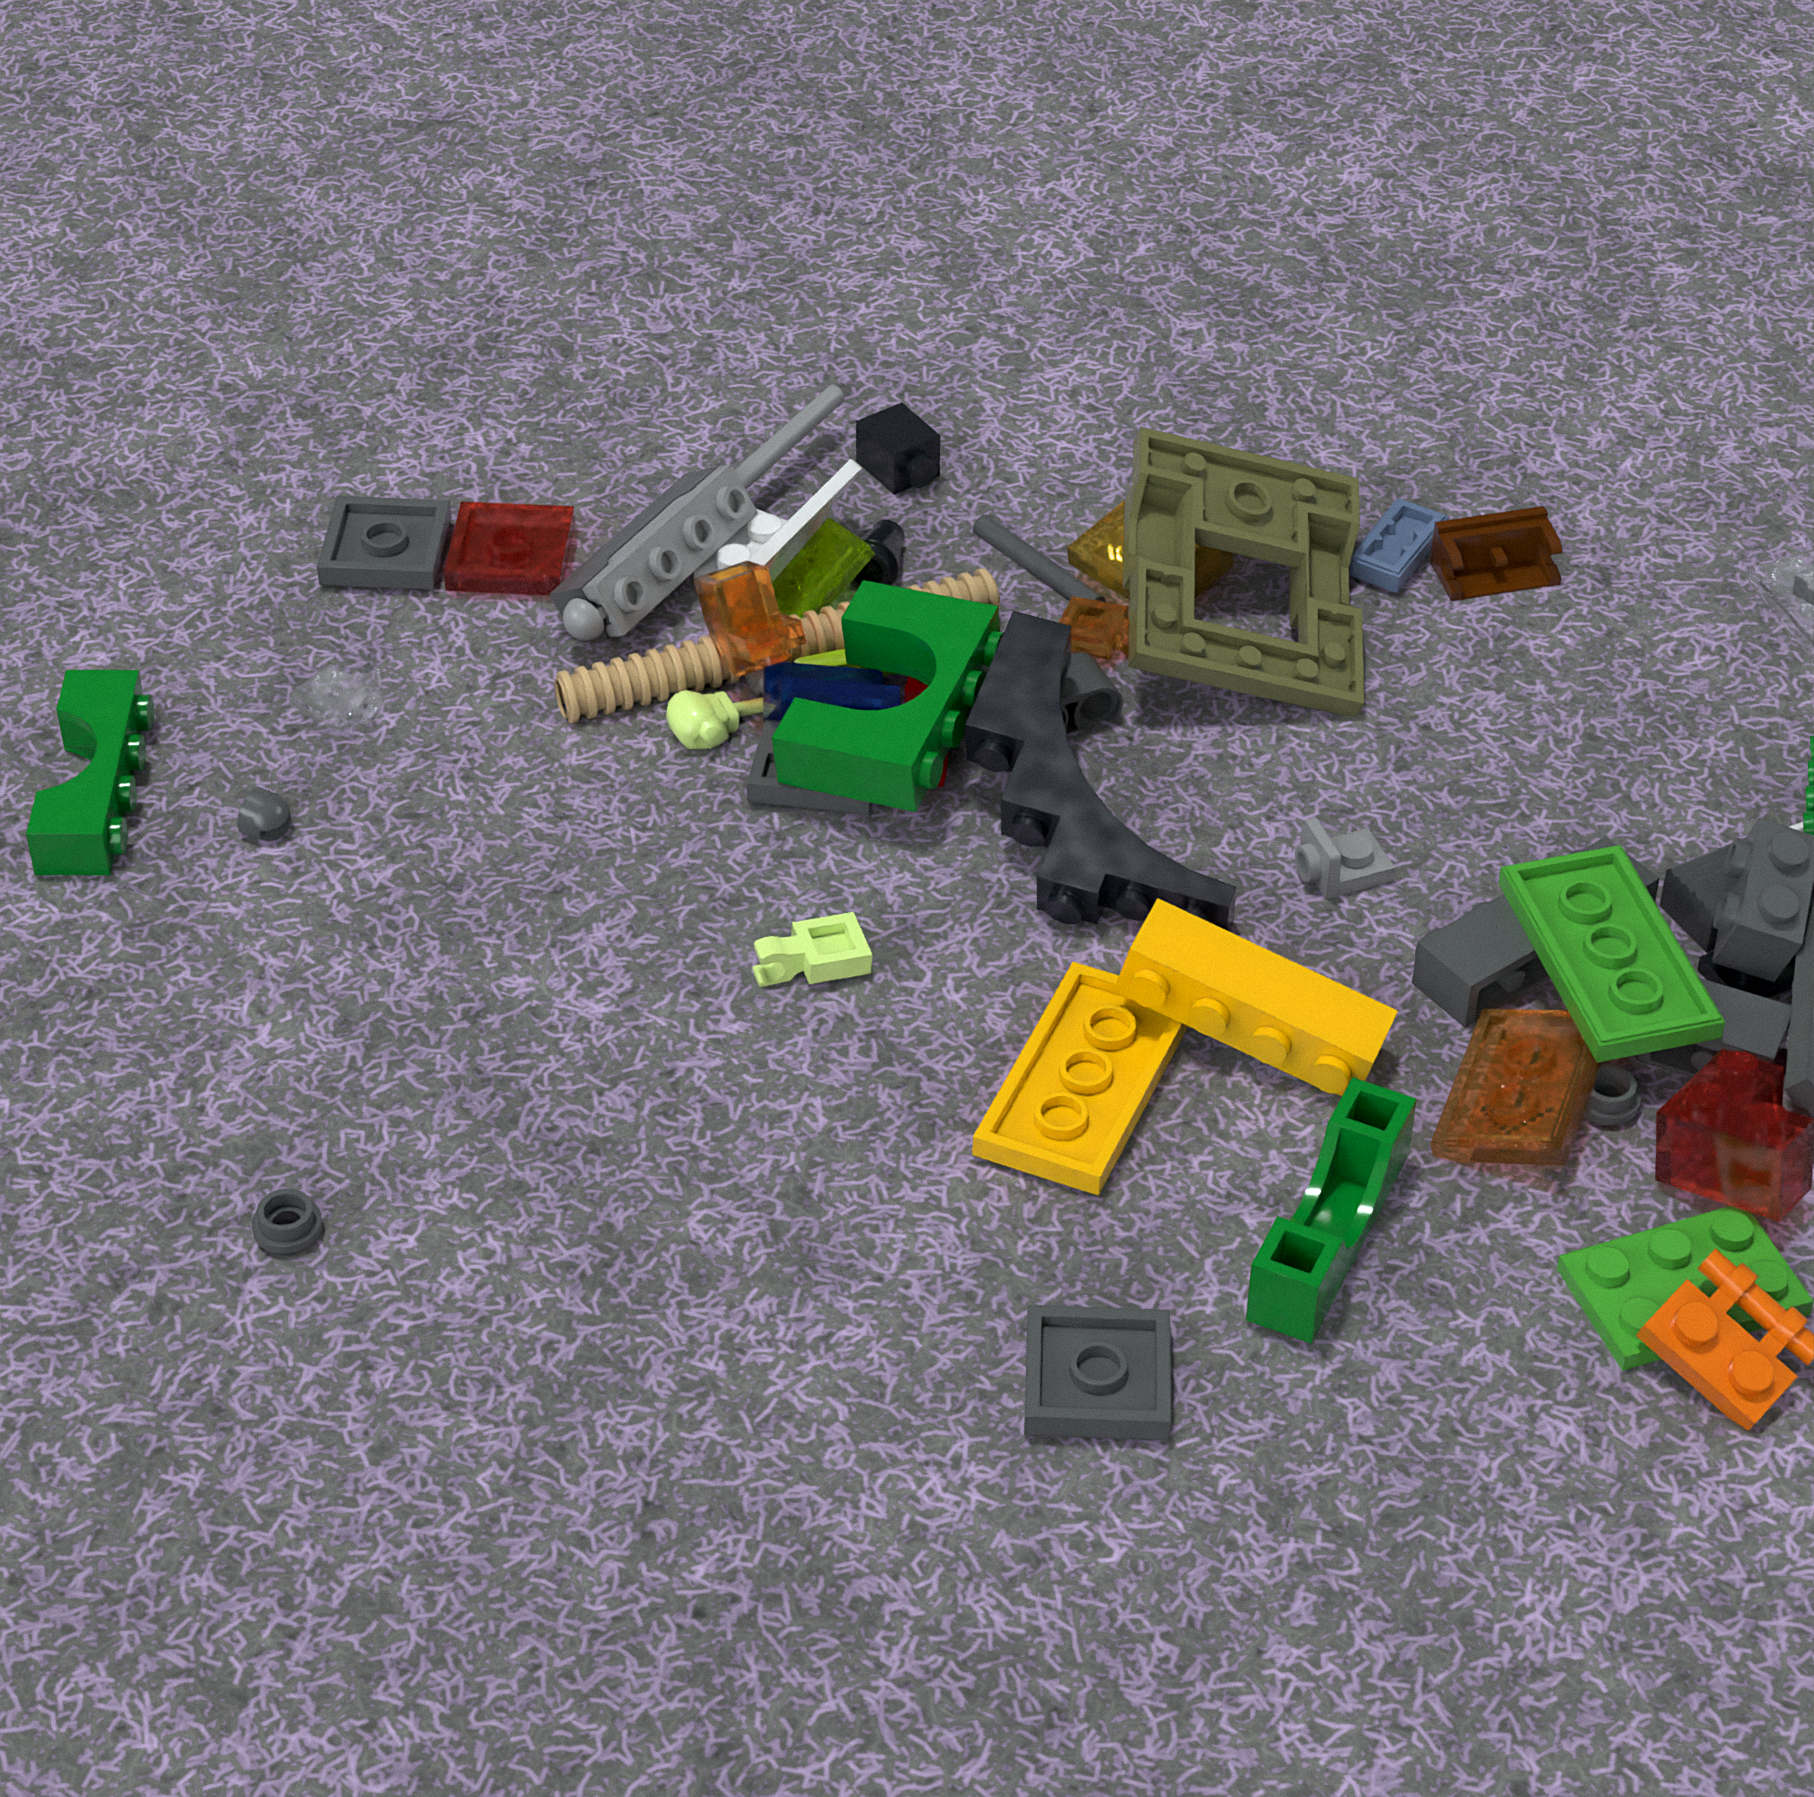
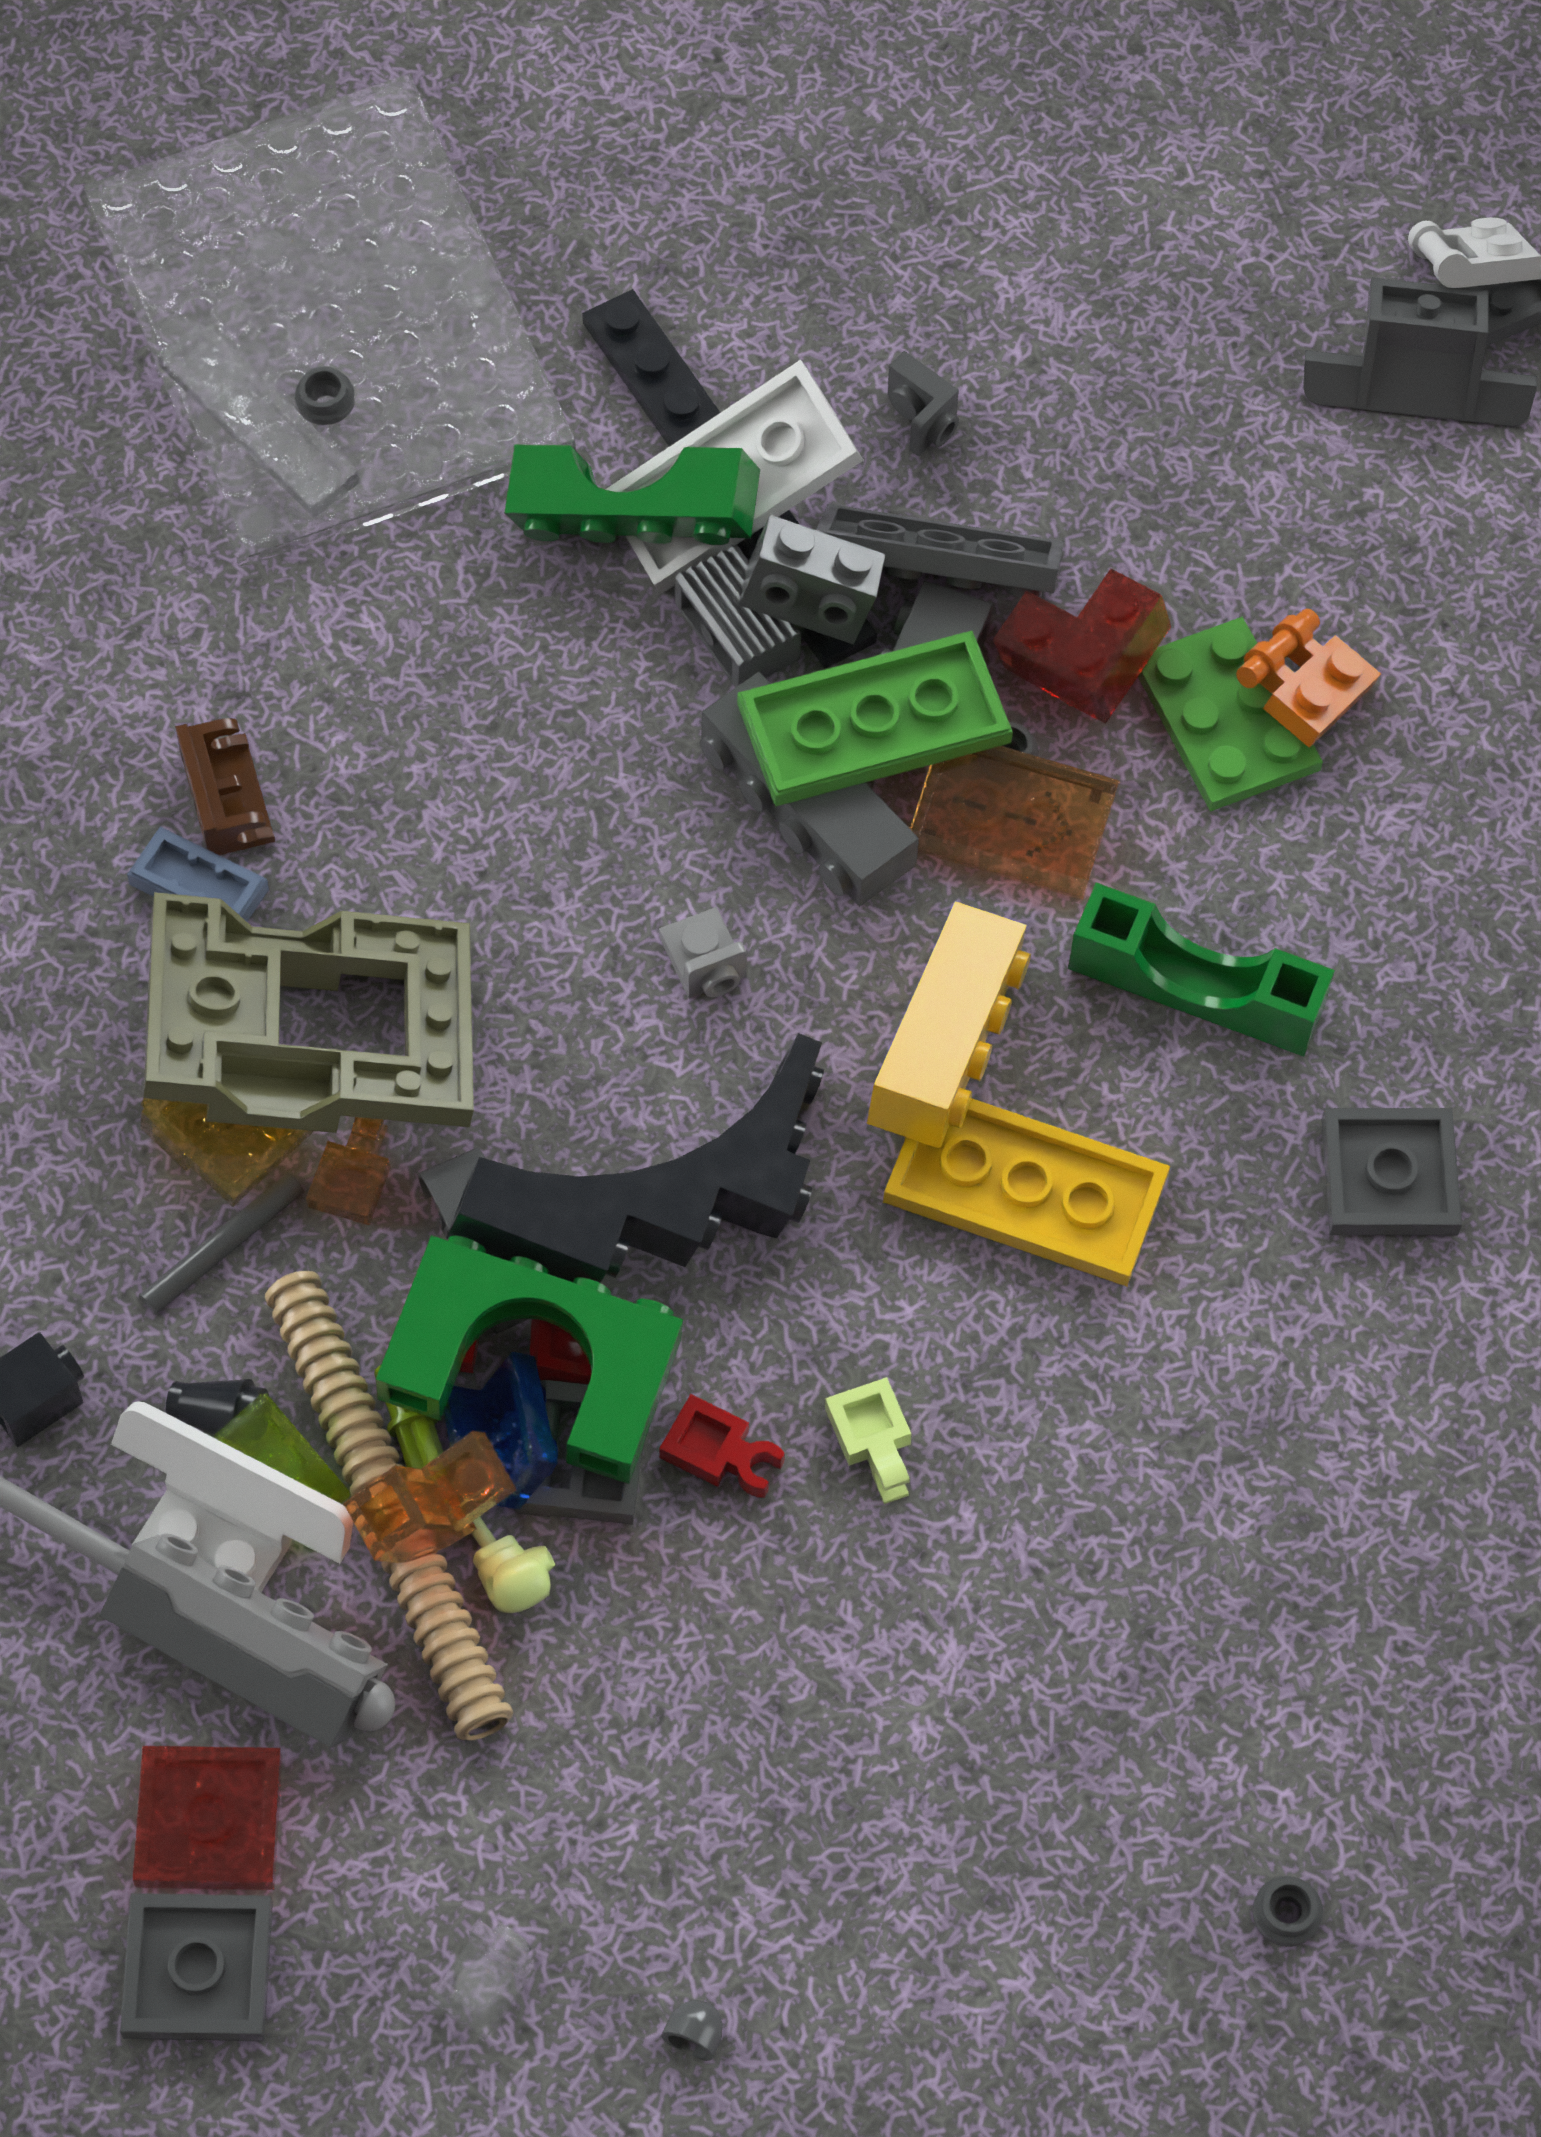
camera: 95 degrees left, 20 degrees up
(814, 843) = (712, 1442): none -> red plate

